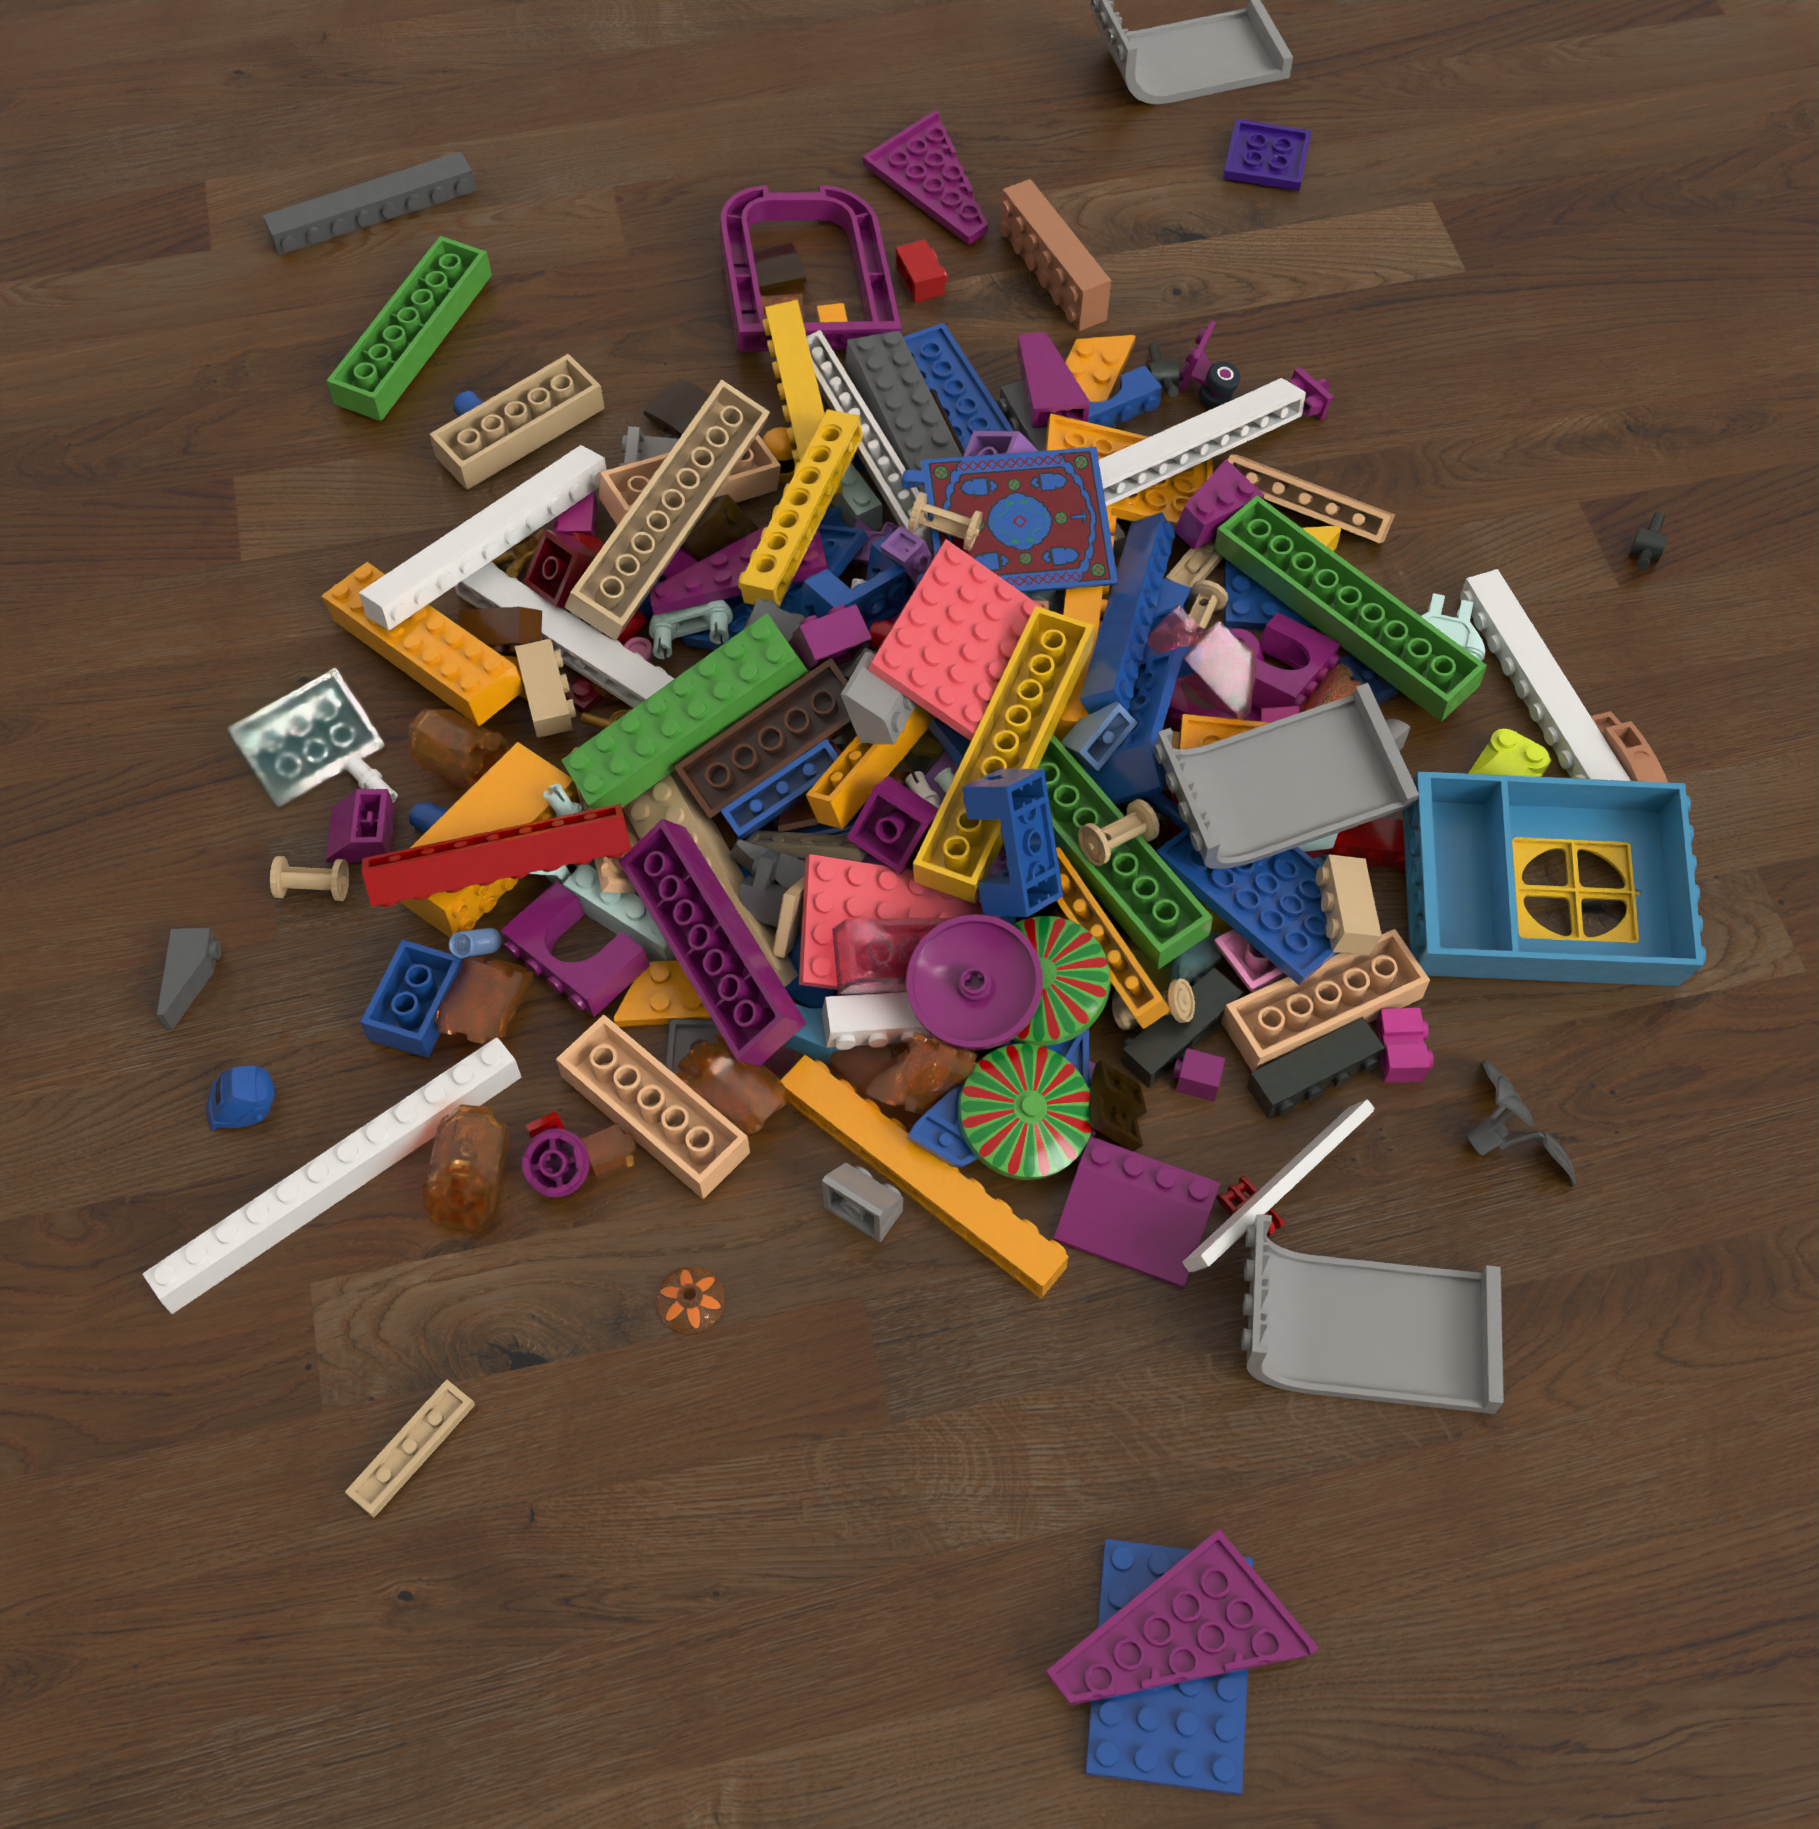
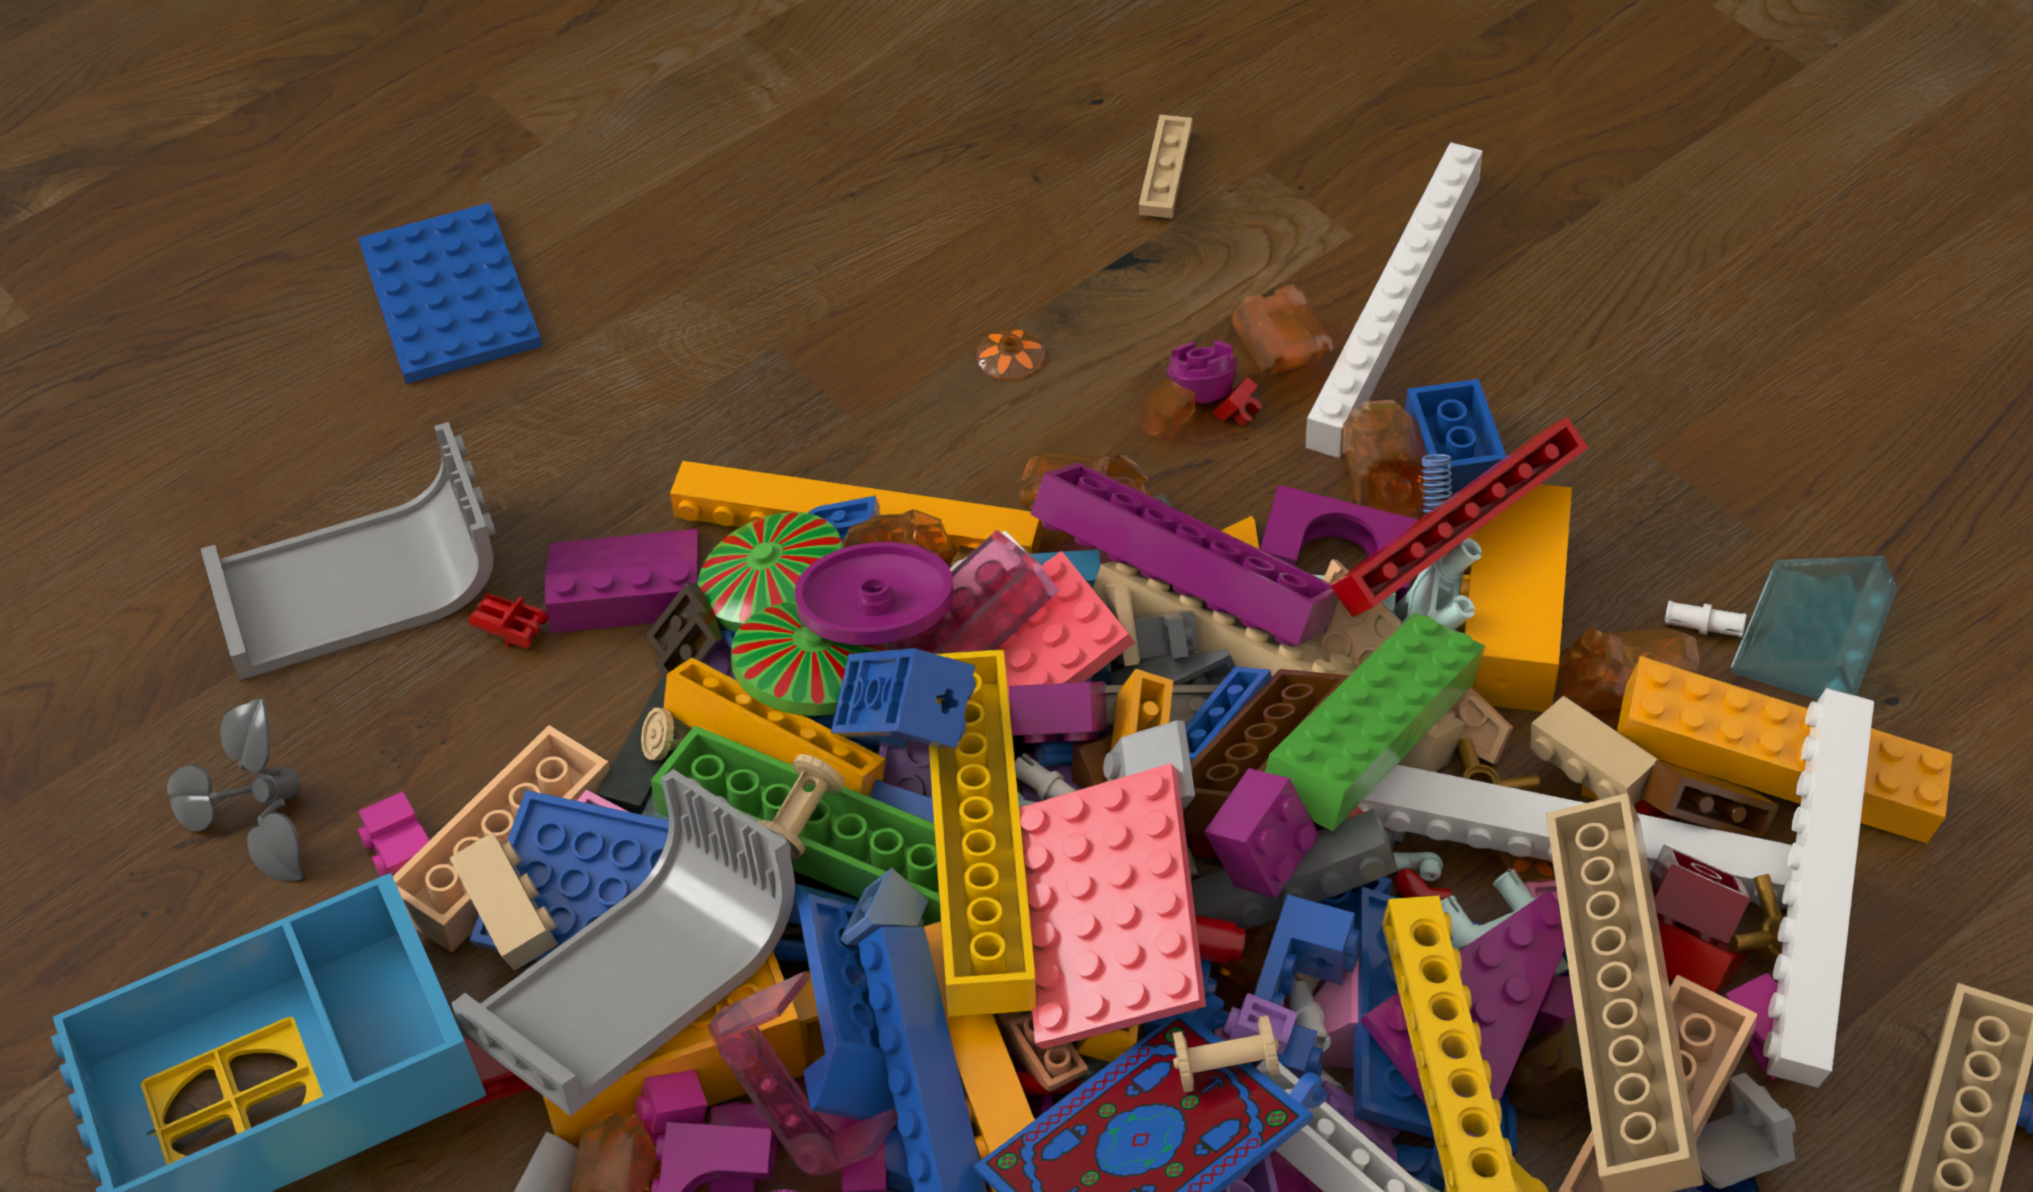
camera: 155 degrees right, 10 degrees down
(187, 969) = (1702, 383): dark grey slope -> none
(240, 1097) = (1540, 311): blue helmet -> none
(287, 877) = (1638, 504): tan hose -> none
(361, 826) = (1658, 562): magenta slope -> none
(425, 815) = (1598, 608): blue brick -> none
(653, 1106) = (1179, 452): light nougat brick -> none
(861, 1200) = (897, 455): light grey slope -> none
(1188, 1625) = (445, 295): magenta wing -> none
(1199, 1074) = (612, 716): magenta brick -> none
(1278, 1186) = (480, 626): white tile -> none
(1315, 1068) = (480, 767): pearl dark grey brick -> none

